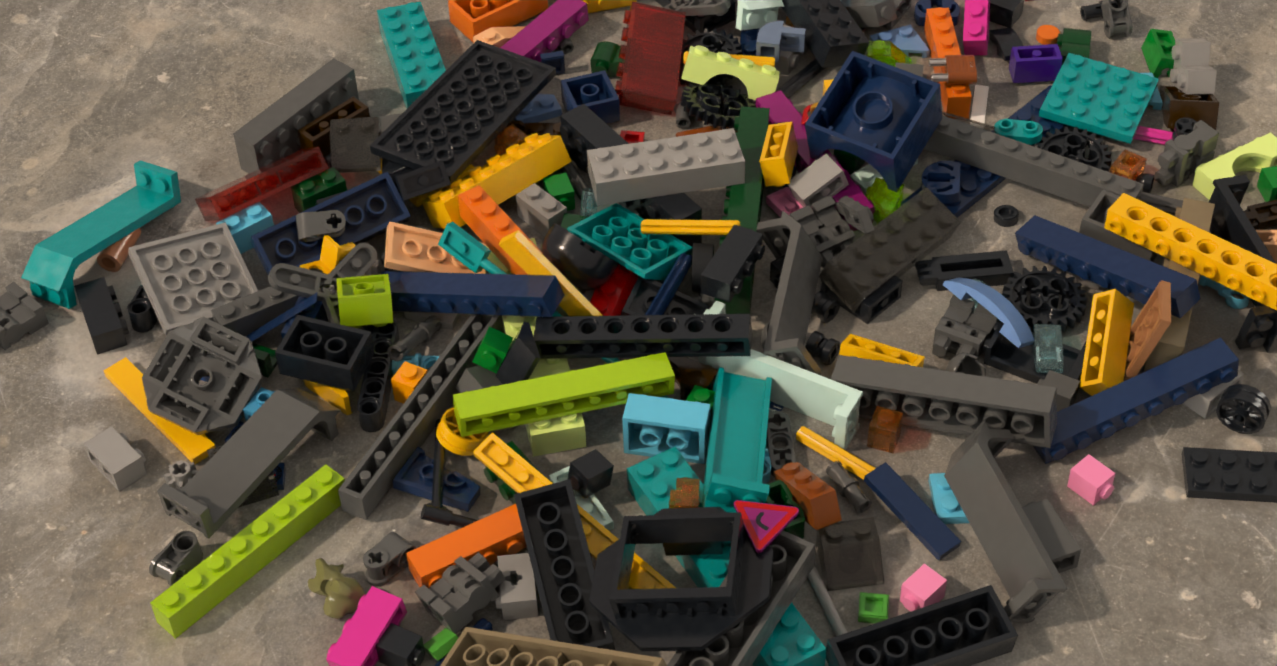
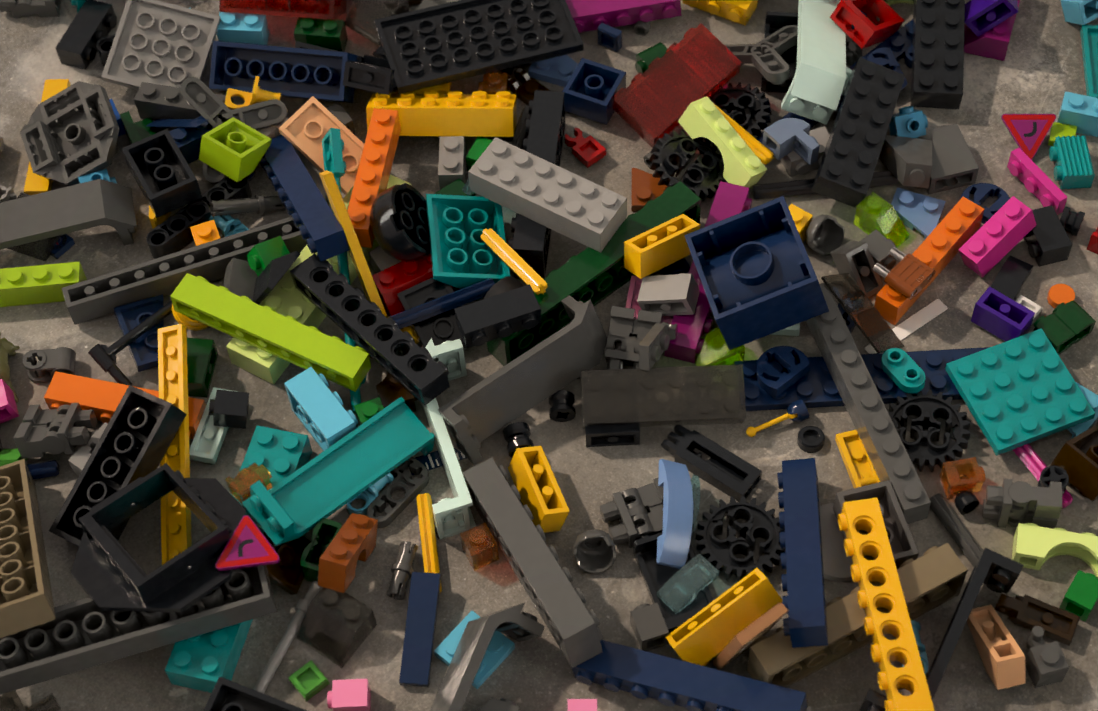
camera: 45 degrees right, 10 degrees up
(315, 225) = (262, 64): dark grey piece -> none
(979, 203) = (796, 412): none -> hinge
(1055, 206) = (856, 459): none -> yellow hinge

